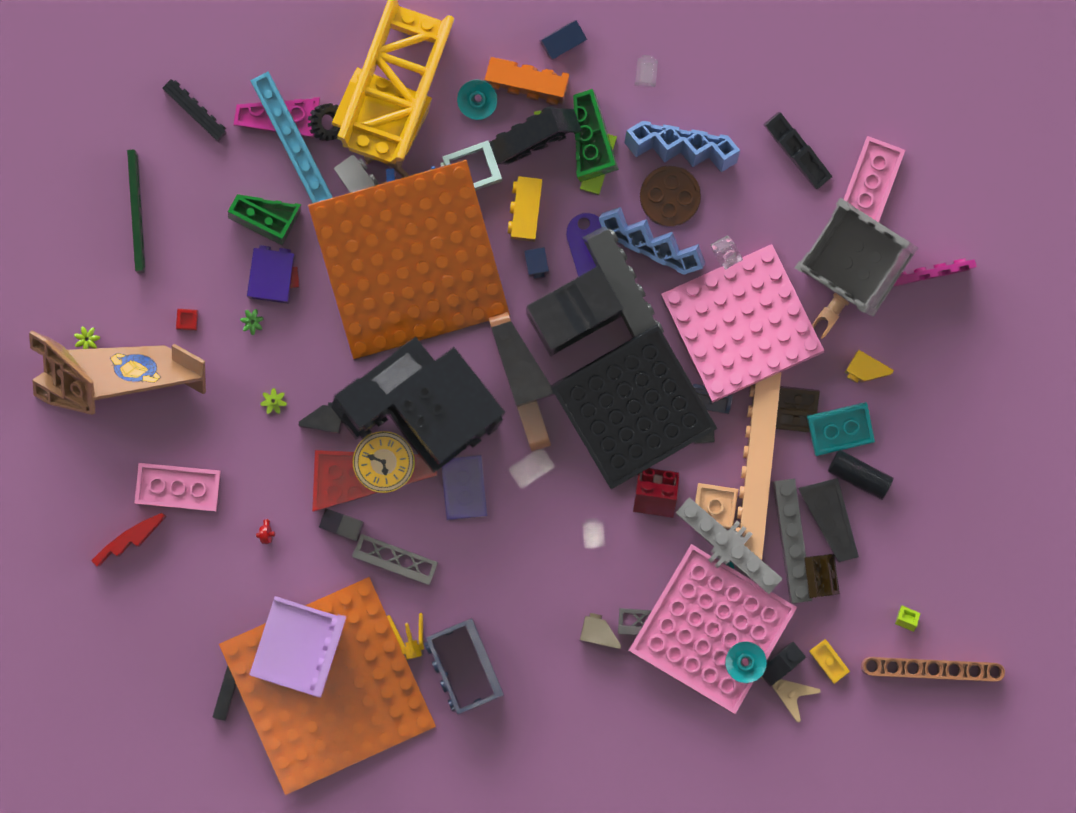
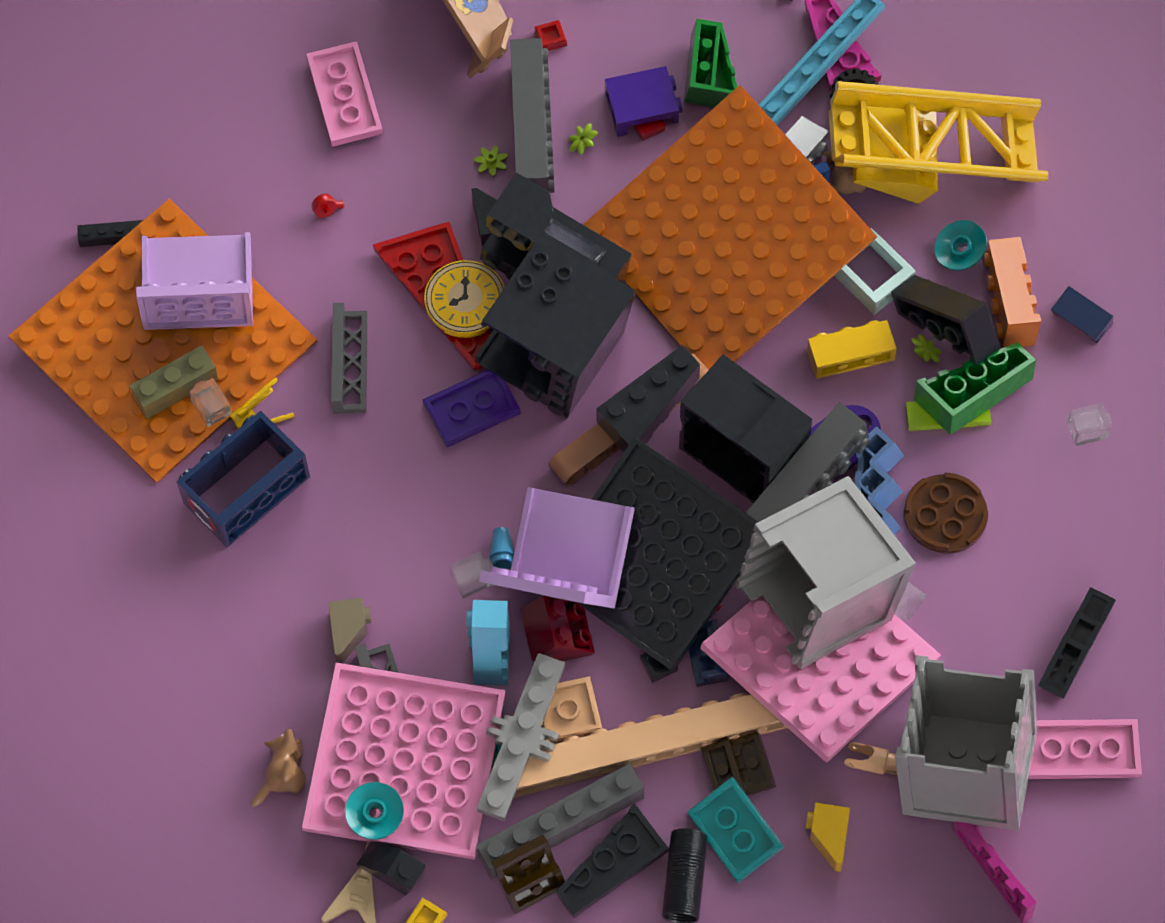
camera: 75 degrees right, 20 degrees down
(135, 535) = (268, 68): red slope -> none
(252, 321) = (583, 101): bright green plant -> none
(260, 363) = (532, 112): none -> dark grey brick
(284, 329) = (583, 139): none -> lime plant
(341, 524) = (369, 286): black slope -> none
(372, 690) = (172, 382): none -> olive brick
(395, 669) = (210, 401): none -> clear brick
(531, 468) = (525, 472): clear panel -> none
(536, 263) = (791, 382): dark blue brick -> none
(545, 157) = (925, 348): none -> lime plant
(583, 507) = (501, 548): none -> dark azure cone
(614, 469) = (568, 549): none -> lavender bracket
(654, 541) = (490, 641): none -> medium azure wedge
(685, 711) = (283, 771): none -> medium nougat animal
(692, 144) = (1015, 485): medium blue brick -> none
(705, 298) = (826, 570): none -> light grey container

